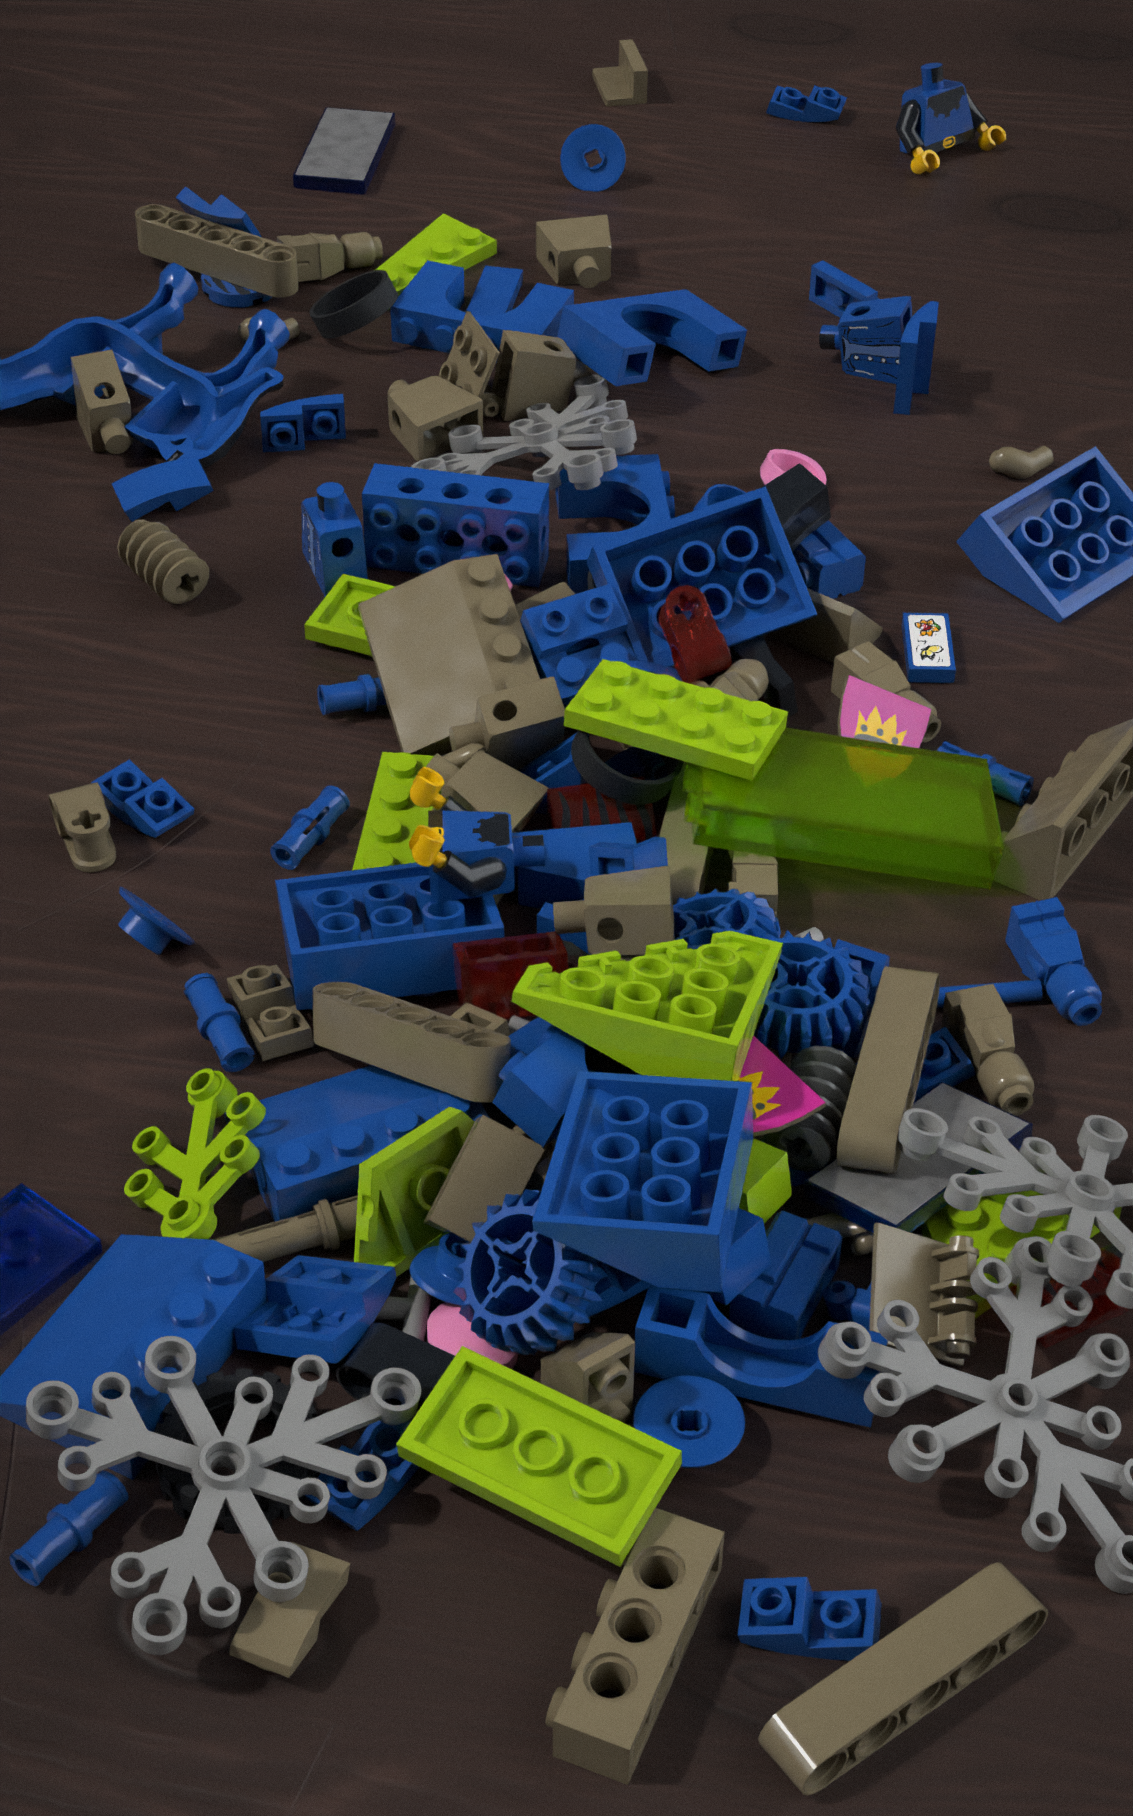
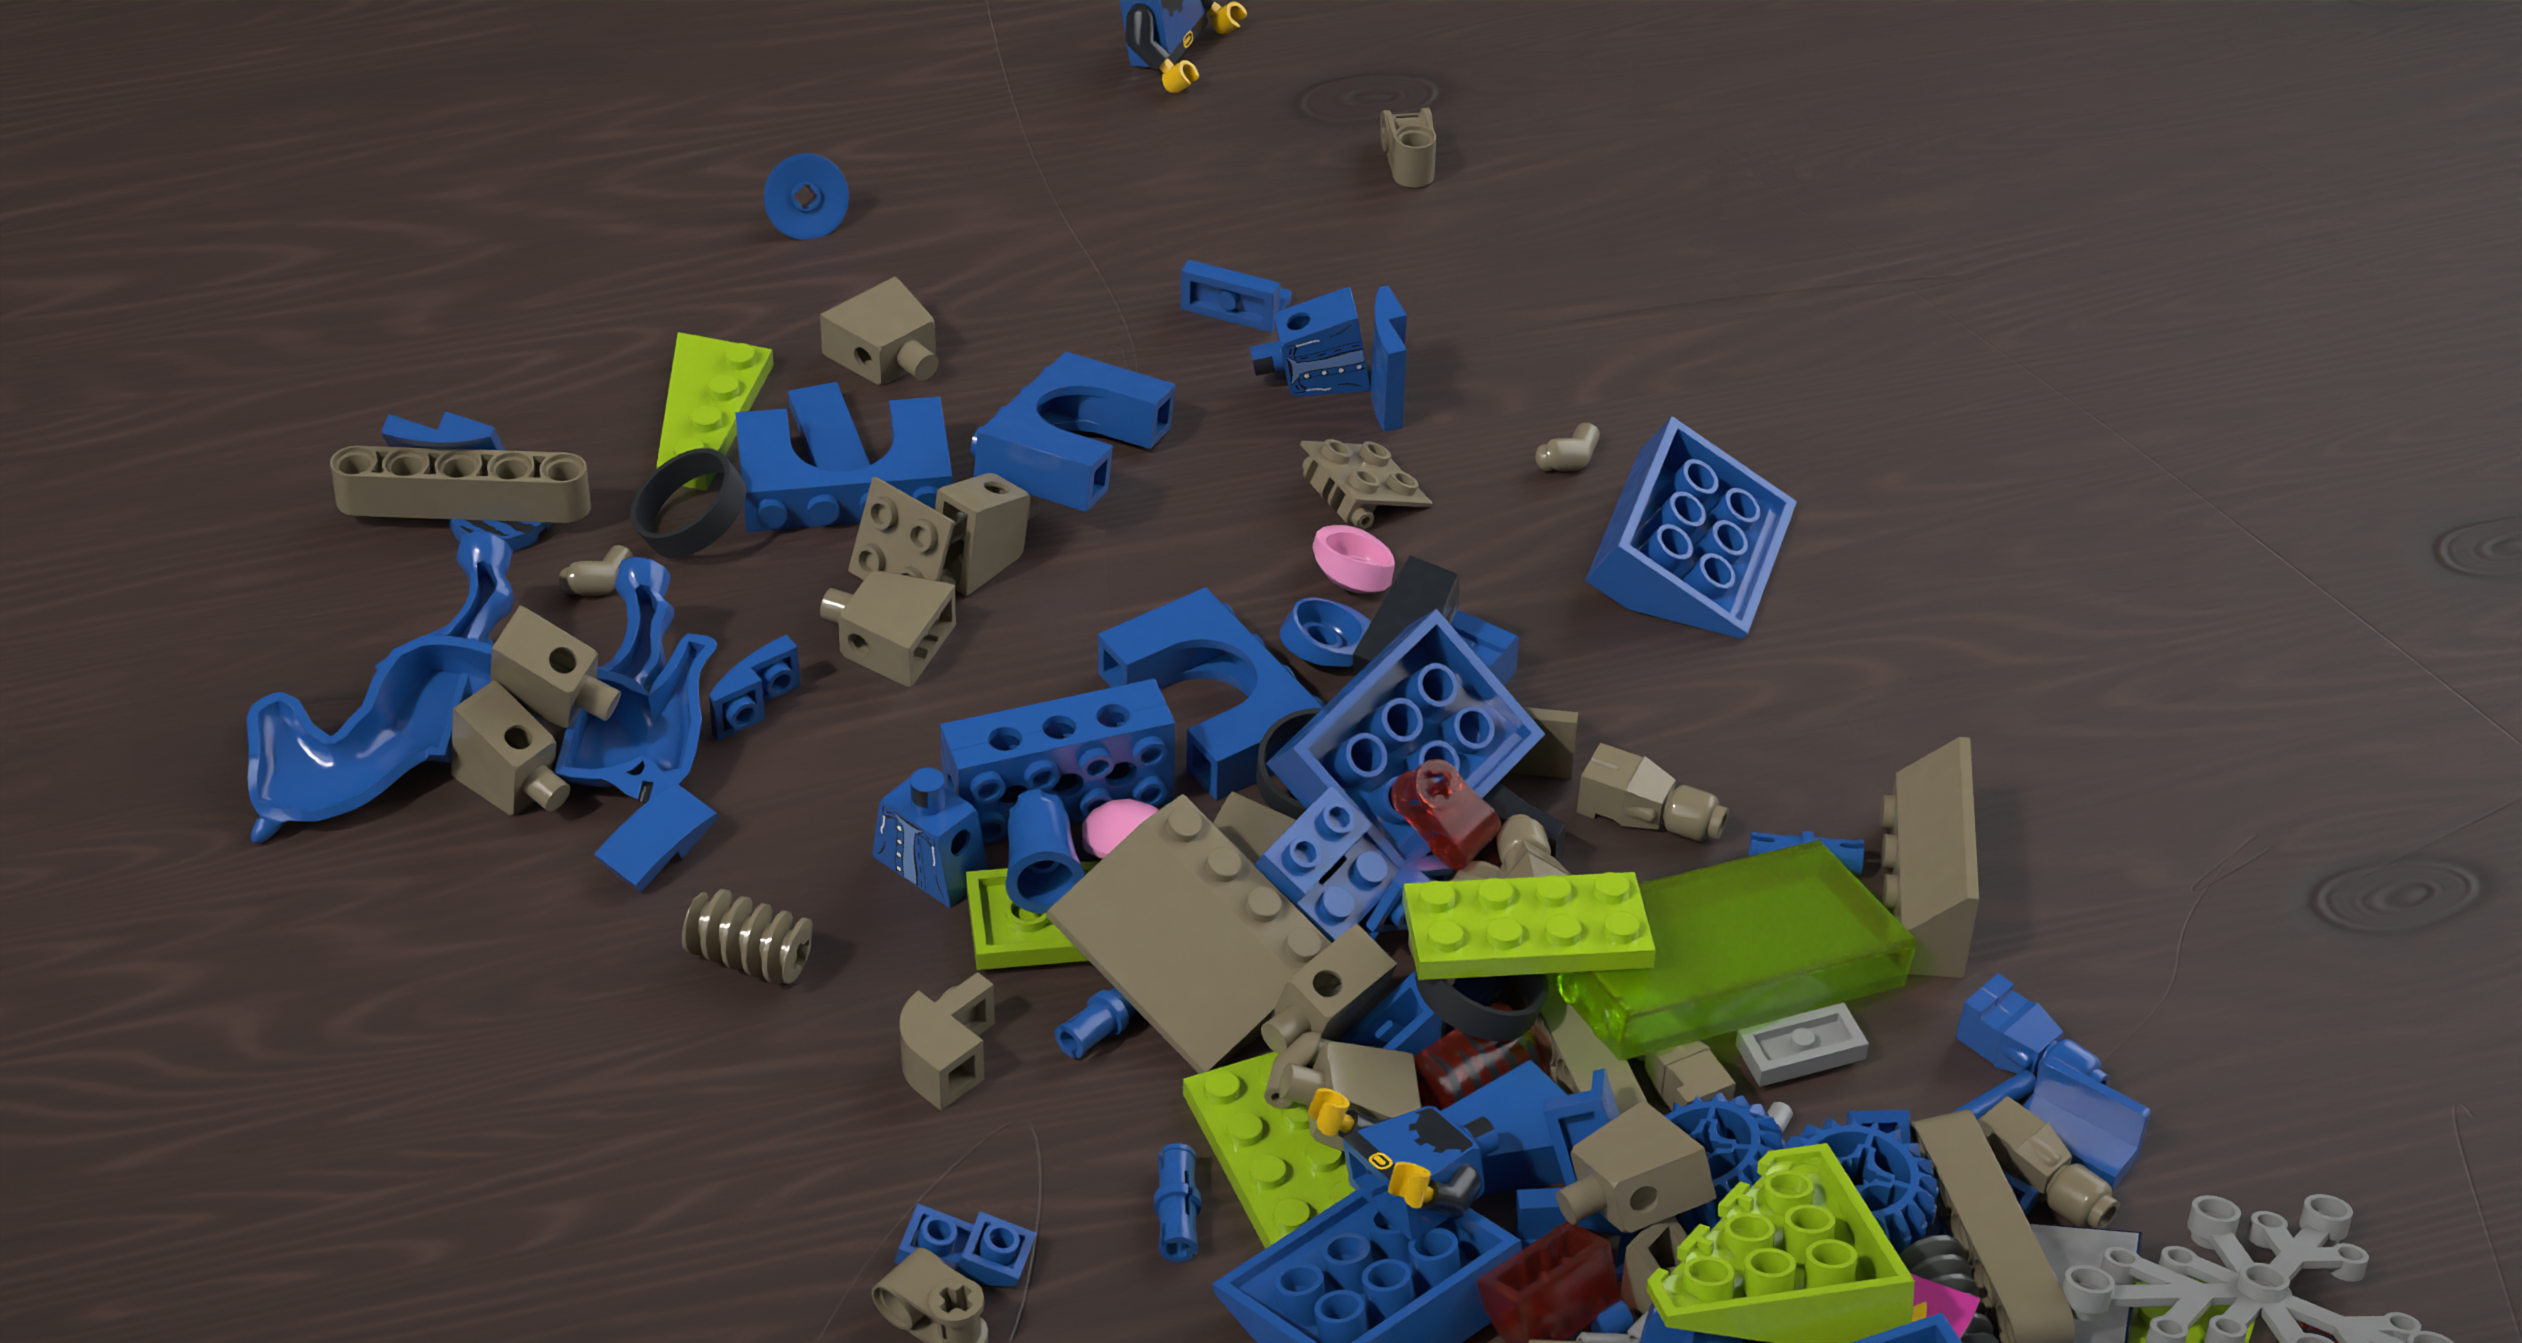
camera: 30 degrees left, 0 degrees up
(156, 364) = (550, 671): none -> dark tan torso
(235, 664) = (941, 1040): none -> dark tan brick
(326, 255) = (594, 433): dark tan piece -> none
(344, 150) = (474, 276): flat silver tile -> none
(392, 564) = (1040, 852): none -> blue plant
(547, 435) = (1062, 614): light grey plant -> none
(626, 82) = (741, 61): dark tan panel -> none
(821, 106) = (995, 34): blue slope -> none
(842, 427) = (1359, 479): none -> dark tan hinge
(867, 896) = (1802, 1044): none -> light grey plate
(880, 715) = (1682, 835): dark pink shield -> none
(928, 648) = (1641, 720): tile -> none
(1054, 1035) = (2091, 1119): none -> blue panel
(1060, 245) = (1409, 146): none -> dark tan piece

